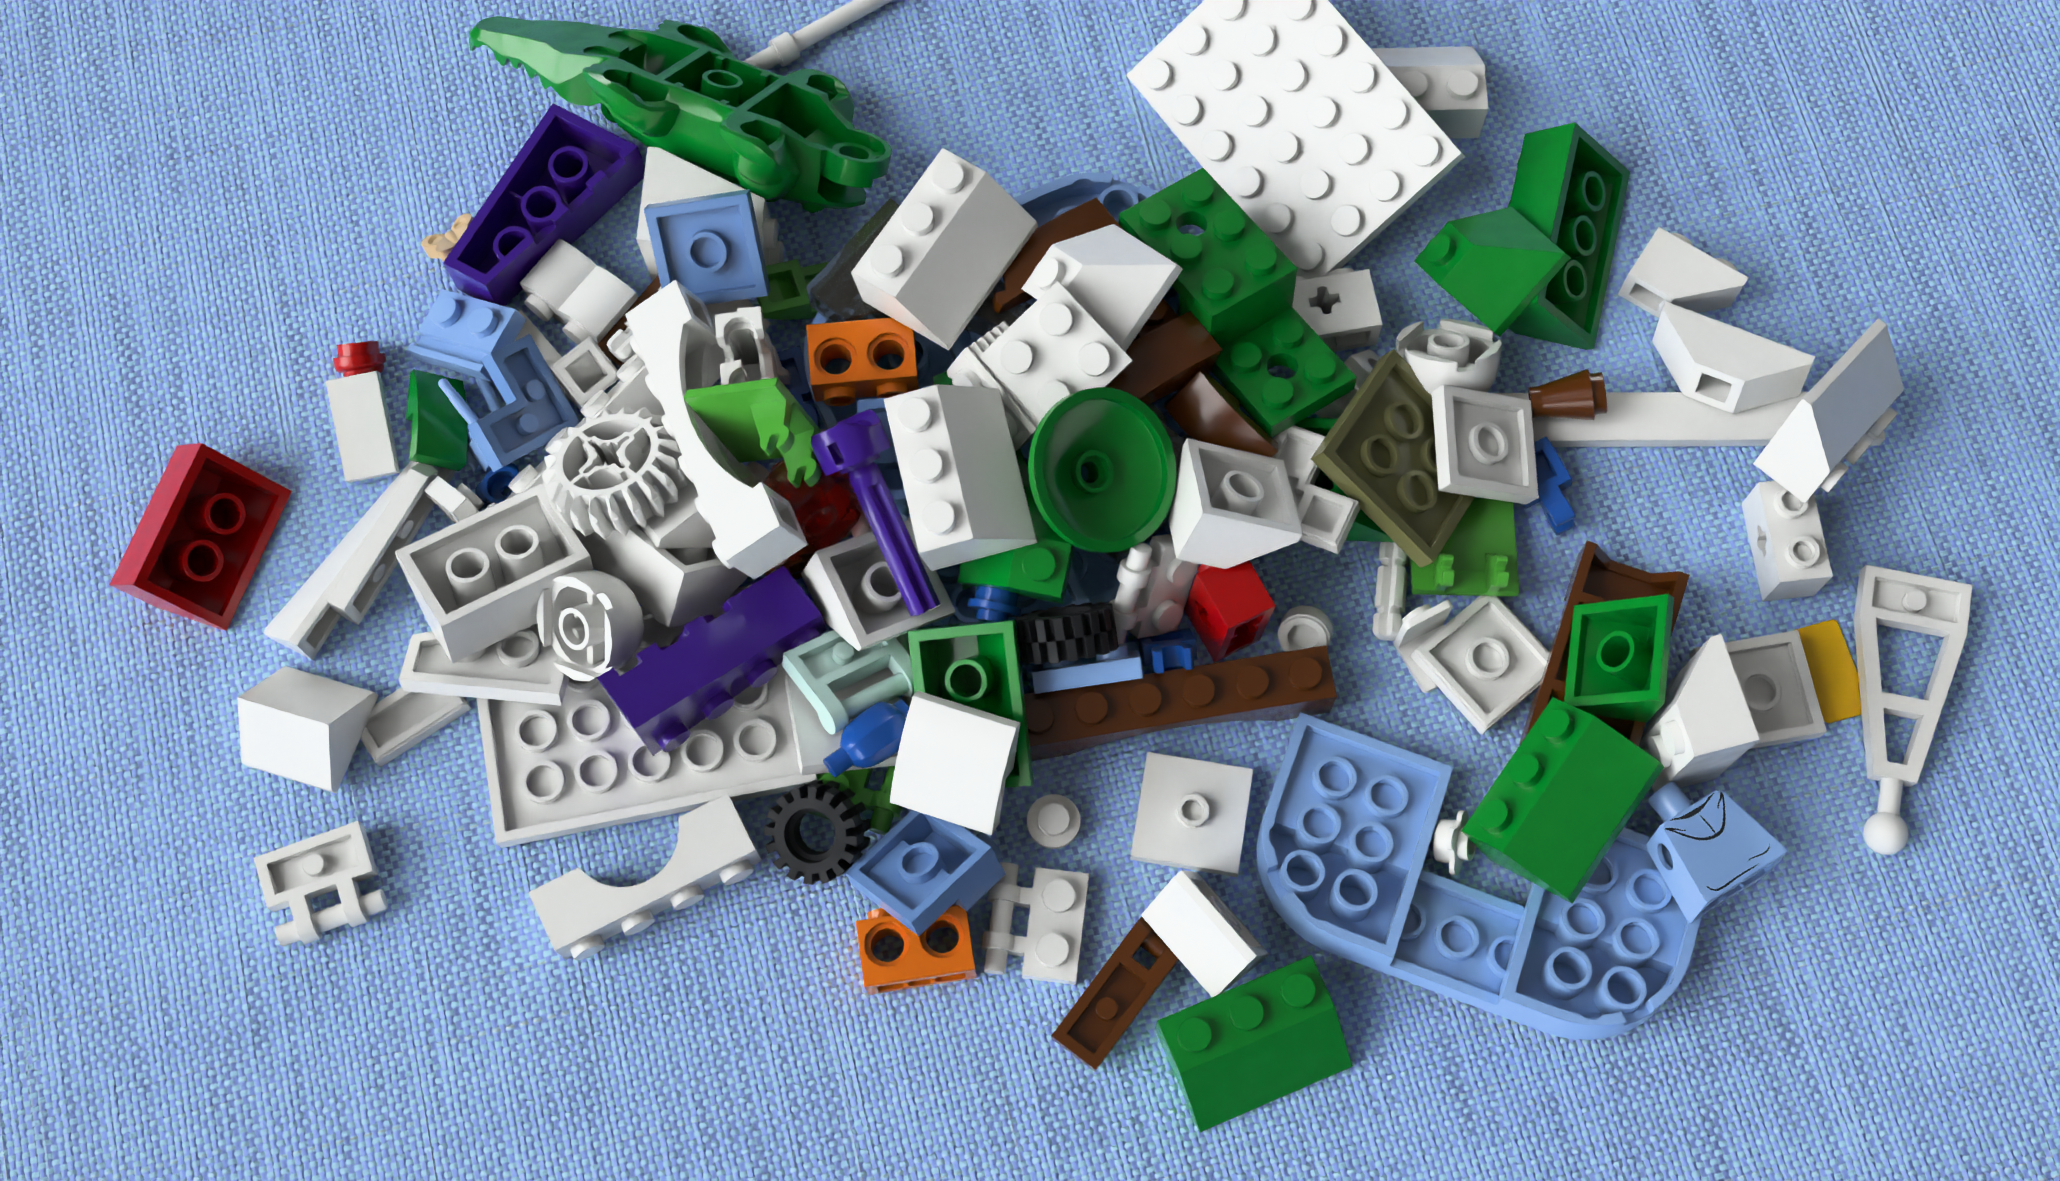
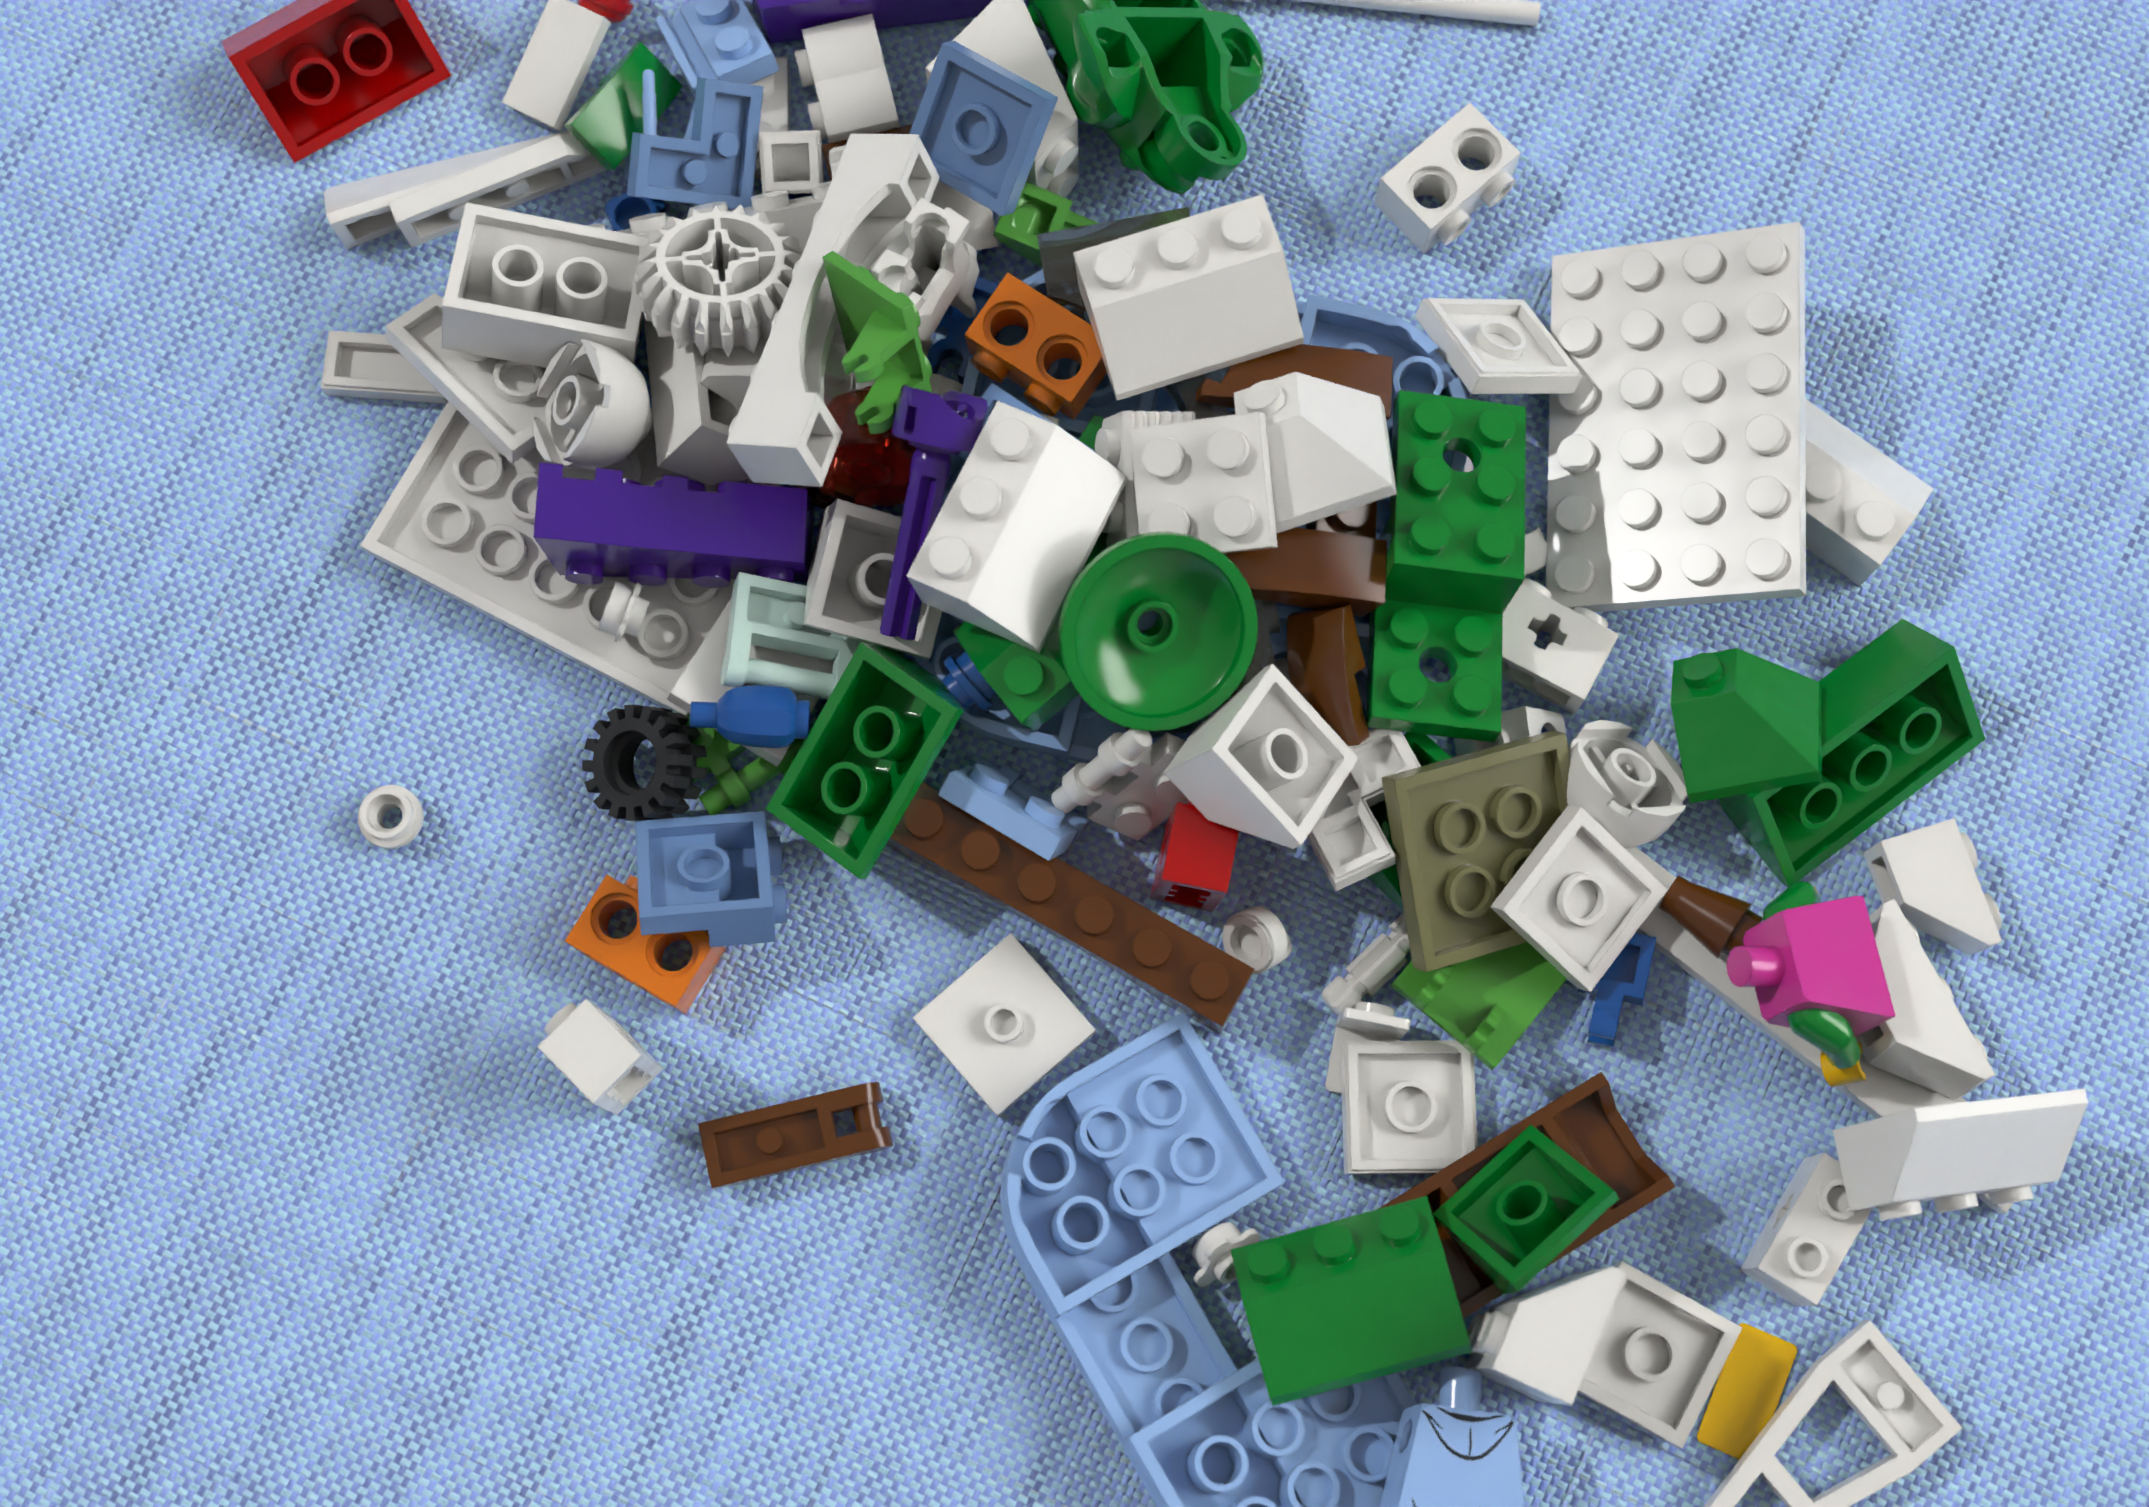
camera: 40 degrees right, 5 degrees up
(303, 726) = (285, 303): white slope -> none
(314, 868) = (194, 443): white plate -> none
(455, 503) = (575, 199): white plate -> none
(656, 995) = (377, 804): none -> white plate
(709, 850) = (540, 700): white arch -> none
(720, 743) = (624, 611): none -> white plate
(951, 1041) = (598, 1055): none -> white brick
(954, 762) = (805, 800): white slope -> none
(1017, 74) = (1437, 172): none -> white brick
(1053, 821) = (870, 927): white plate -> none
(1053, 928) = (791, 1023): white plate -> none
(1067, 633) = (1011, 761): black tyre -> none
(1145, 150) = (1498, 346): none -> white plate
(1169, 650) = (1108, 854): blue plate -> none
(1203, 932) = (919, 1145): white slope -> none
(1254, 1043) = (874, 1285): green slope -> none
(1666, 377) = (1817, 975): none -> dark pink torso

